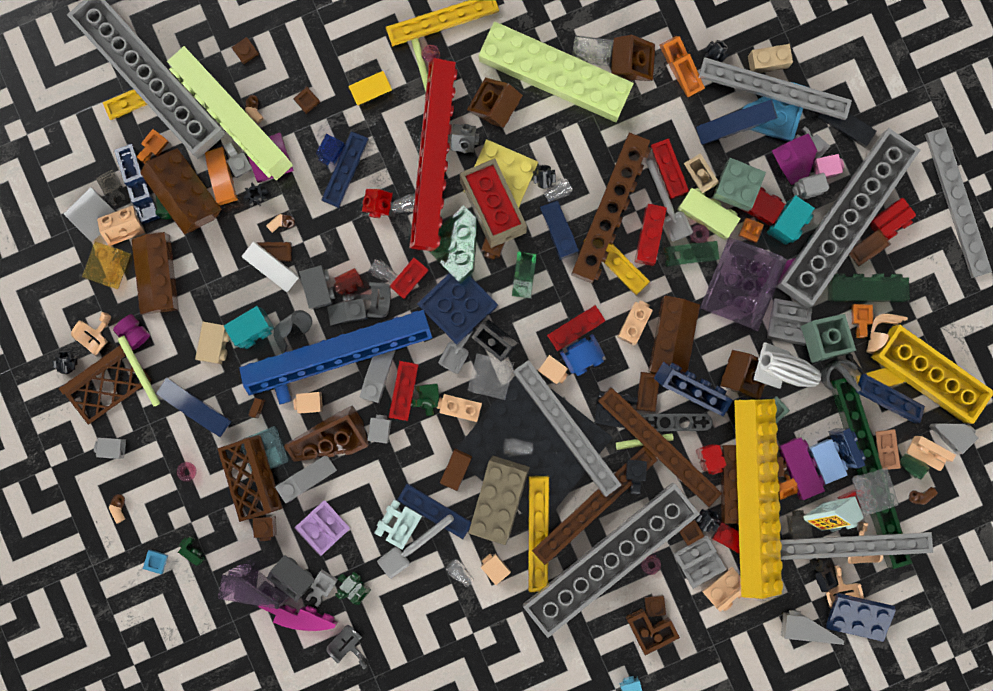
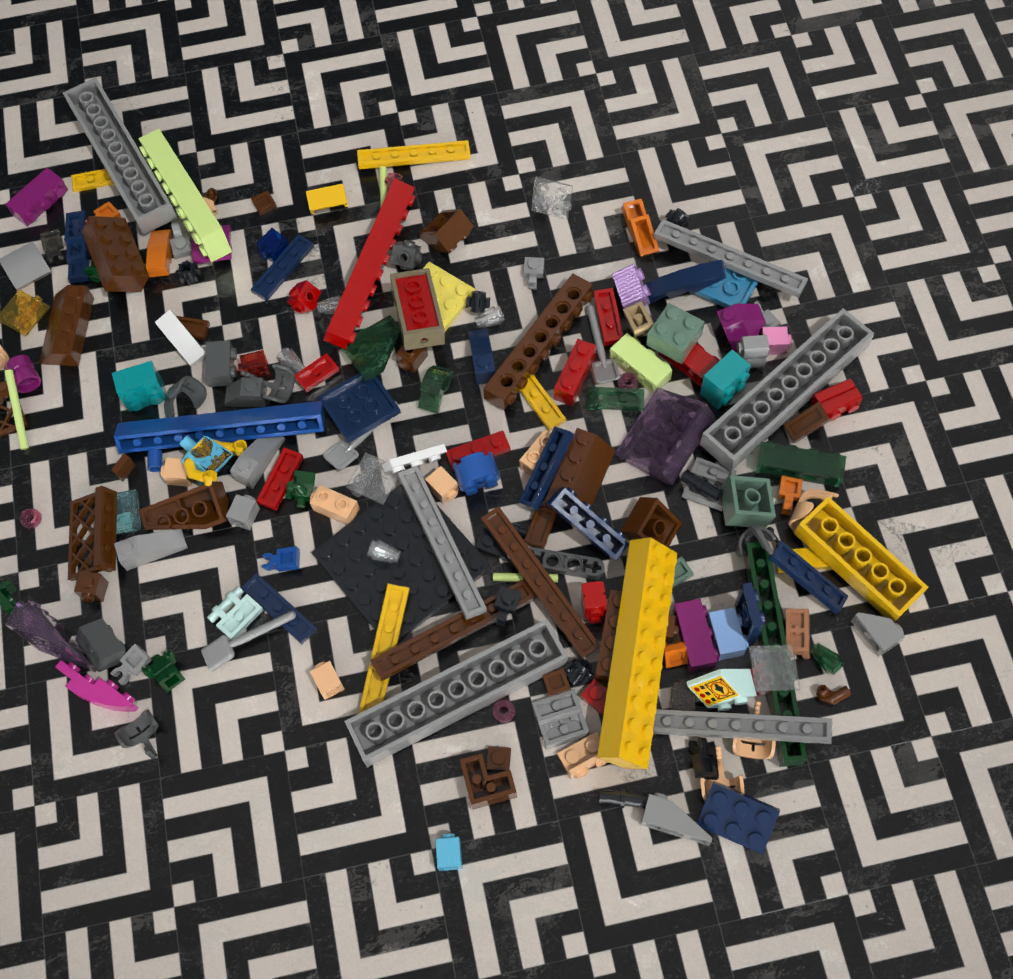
camera: 15 degrees right, 20 degrees down
(78, 136) = (37, 197): none -> magenta brick
(120, 226) = (46, 278): light nougat bracket -> none
(193, 407) = (59, 455): dark blue slope -> none
(212, 343) = (98, 399): tan brick -> none
(245, 50) = (219, 153): reddish brown plate -> none
(281, 220) = (205, 301): arm -> none
(322, 528) = (153, 602): lavender slope -> none
(334, 389) = (208, 457): none -> torso
(429, 467) = (284, 560): none -> blue plate
(456, 469) = (312, 566): reddish brown tile -> none
(459, 572) = (286, 676): clear cone -> none
(494, 340) = (386, 441): black brick -> none
(498, 500) = (348, 602): dark tan brick -> none
(524, 352) = (414, 459): none -> white plate
(555, 71) = (512, 213): yellowish green brick -> none
(588, 129) = (533, 269): none -> light grey plate
(633, 58) = (592, 213): reddish brown slope -> none
(645, 341) = (546, 468): none -> dark blue brick
(686, 135) = (630, 286): none -> lavender brick
(751, 230) = (684, 386): orange tile -> none
(763, 619) = (622, 798): none -> black pin
(770, 59) = (732, 233): tan brick -> none
(778, 366) = (690, 519): white plate -> none
(784, 328) = (701, 485): none -> black pin
(851, 127) = (803, 308): black tile -> none
(929, 452) = (848, 644): light nougat bracket -> none
(958, 202) = (912, 401): light grey plate -> none

